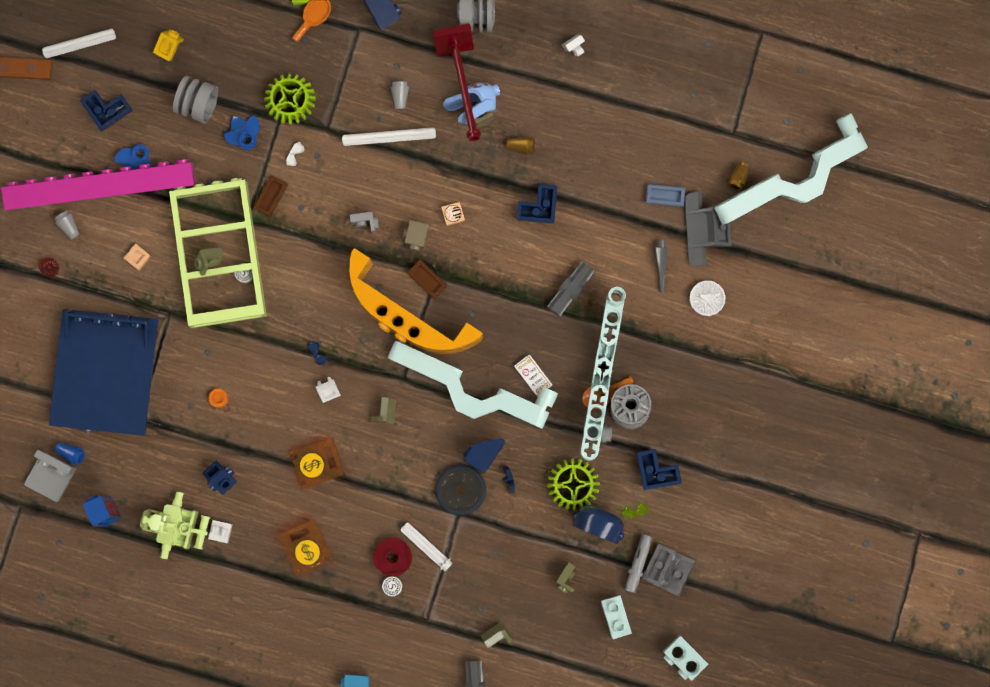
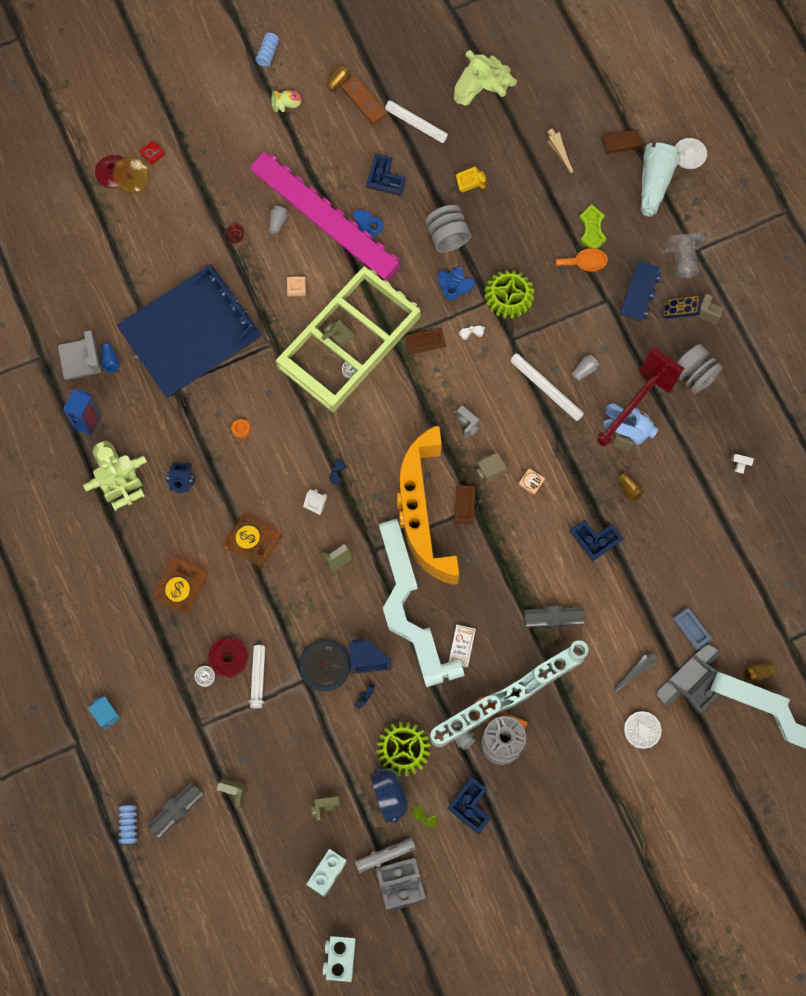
camera: 45 degrees right, 10 degrees down
(220, 531) = (140, 513): white tile -> none

